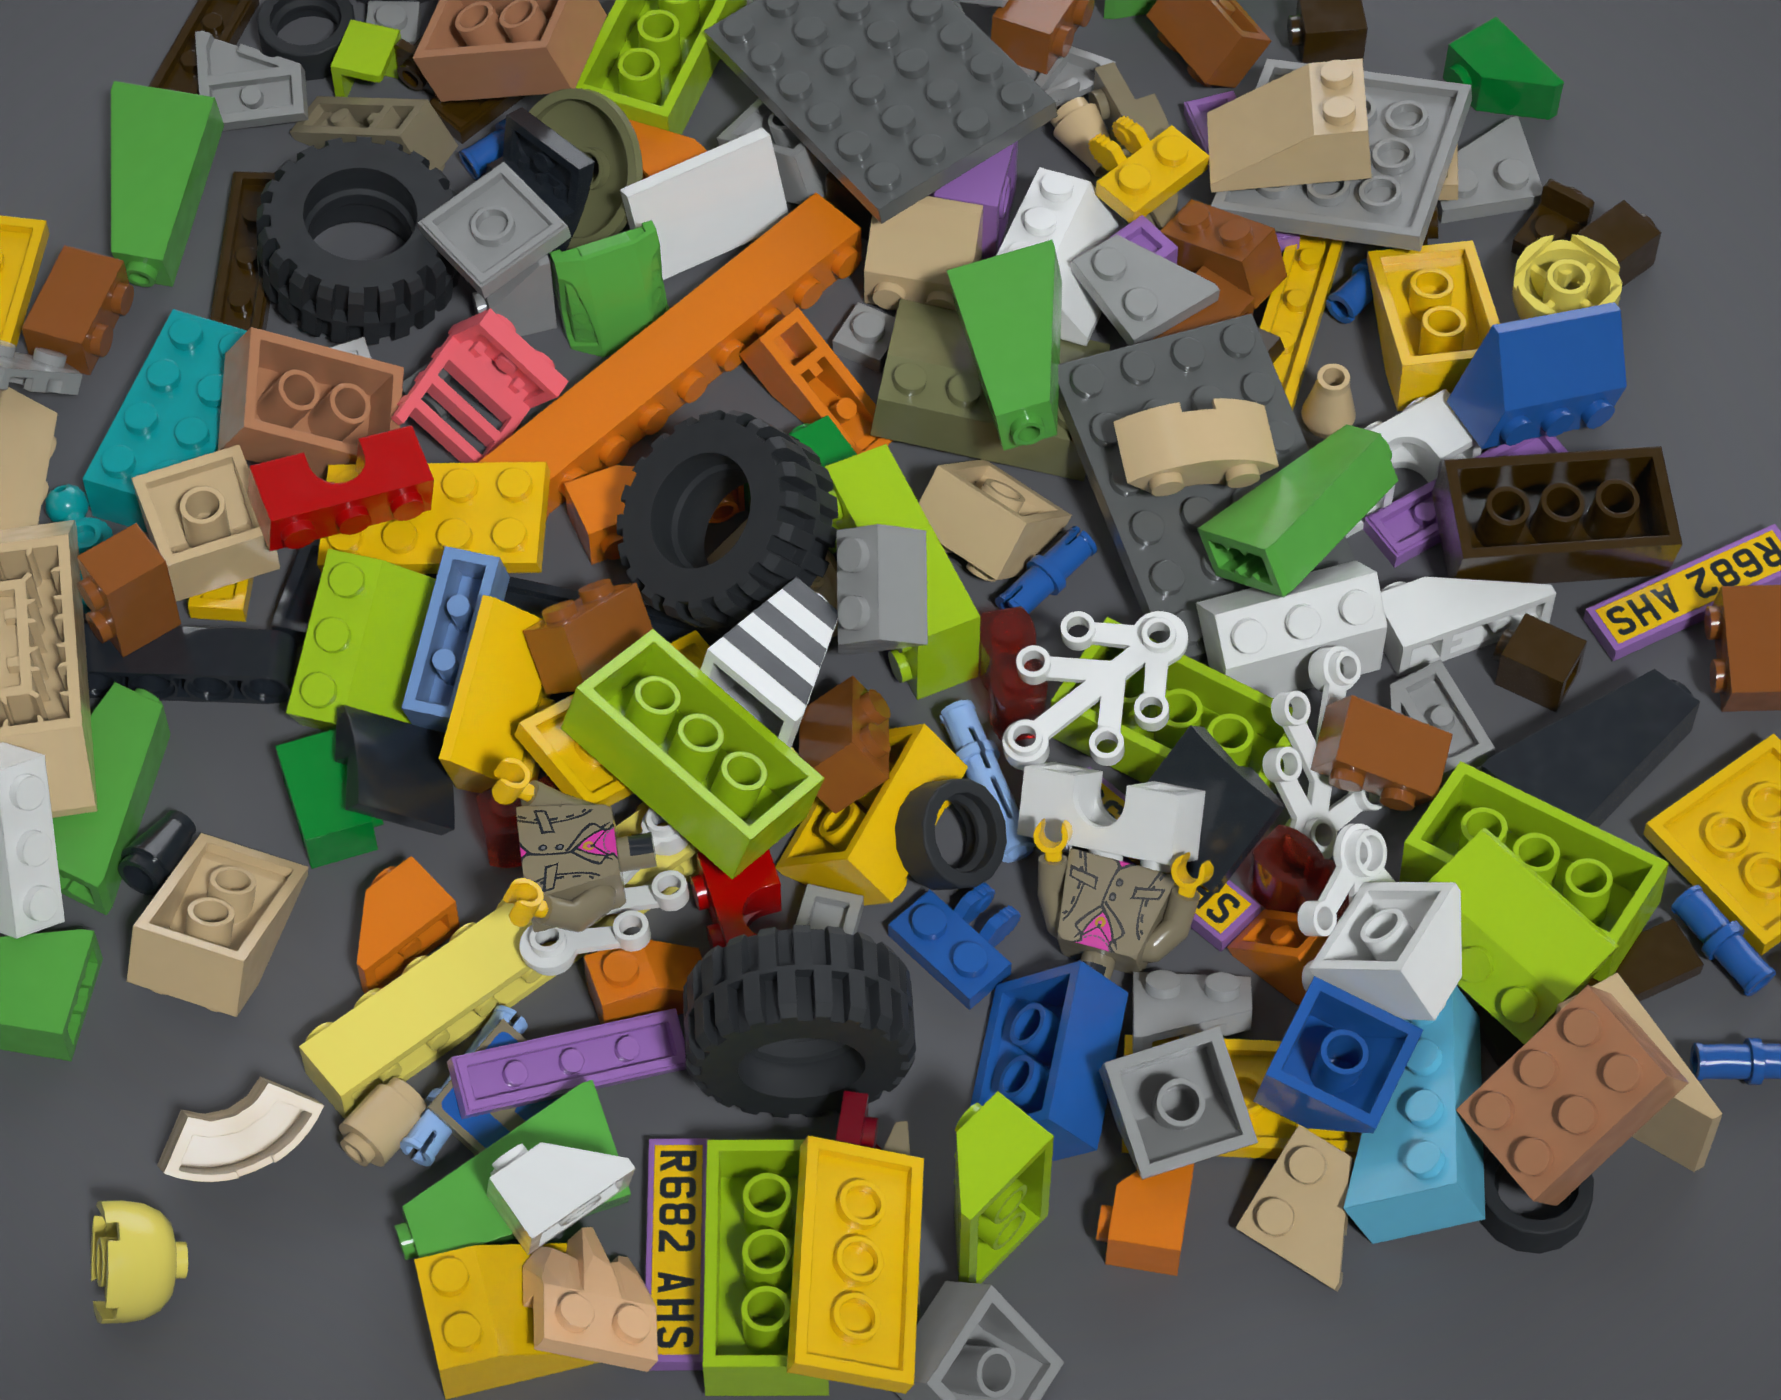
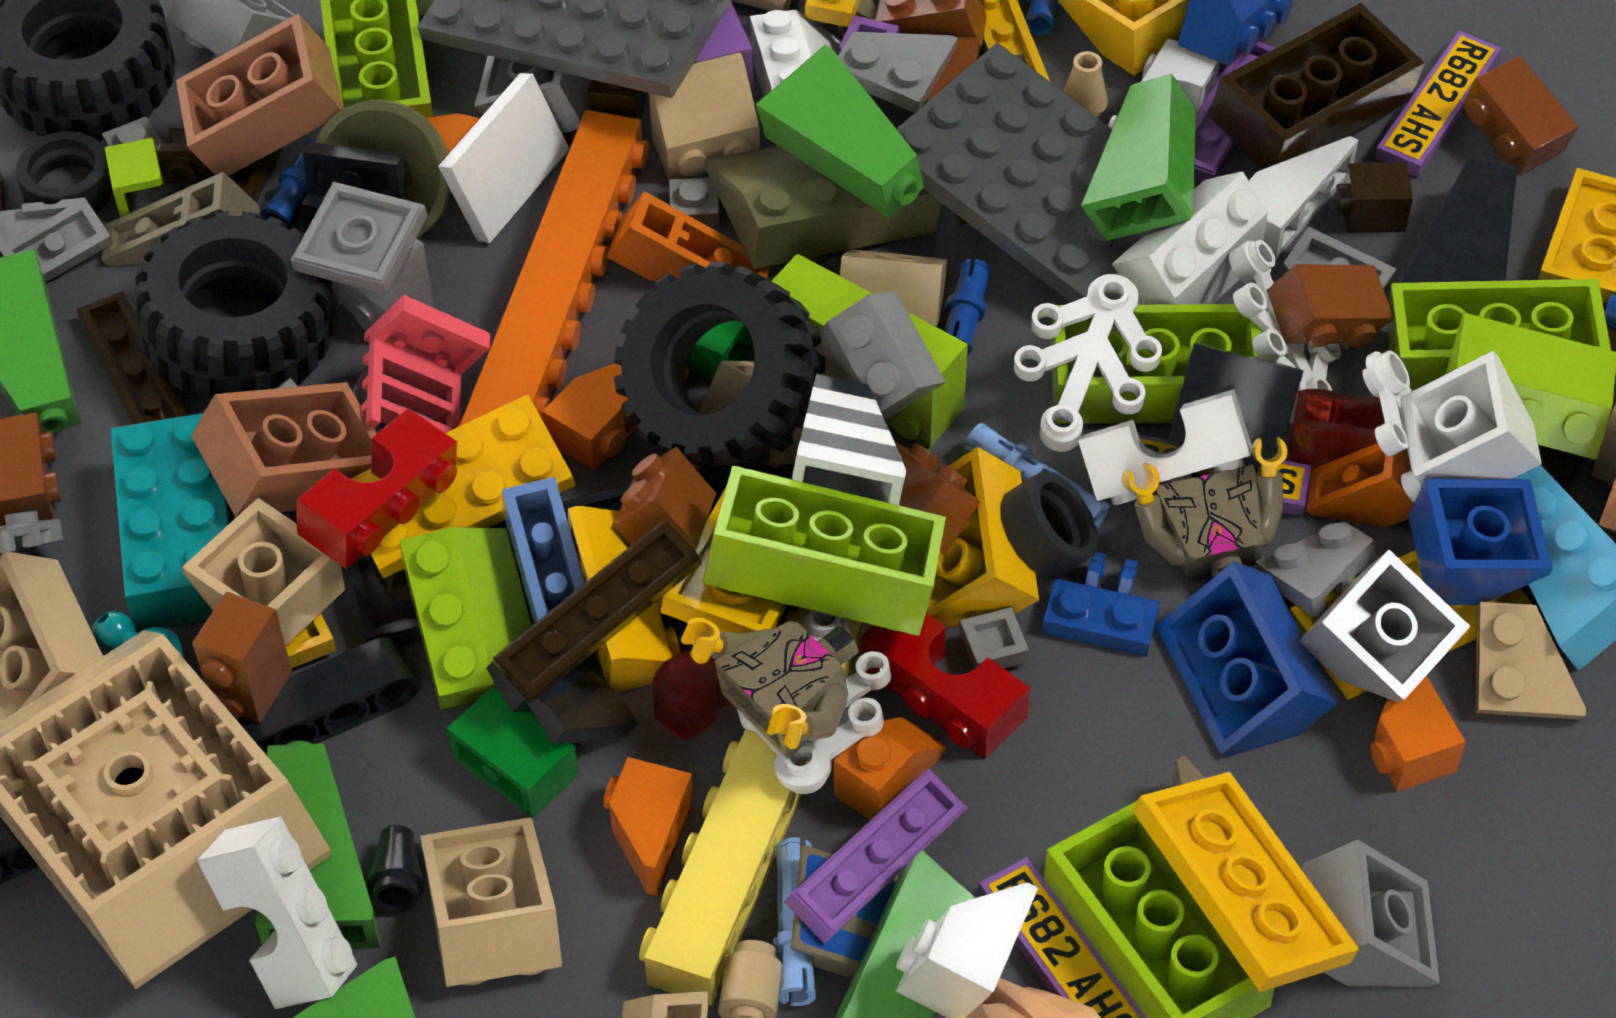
camera: 30 degrees left, 5 degrees down
(450, 706) = (597, 611): none -> dark brown tile
(609, 289) = (472, 254): bright green slope -> none
(798, 1020) = (1059, 715): black tyre -> none
(854, 1121) = (1149, 773): dark red plate -> none
(998, 1184) = (1297, 761): lime slope -> none
(1010, 699) = (997, 393): clear red brick -> none
(1181, 449) = (1044, 144): tan brick -> none

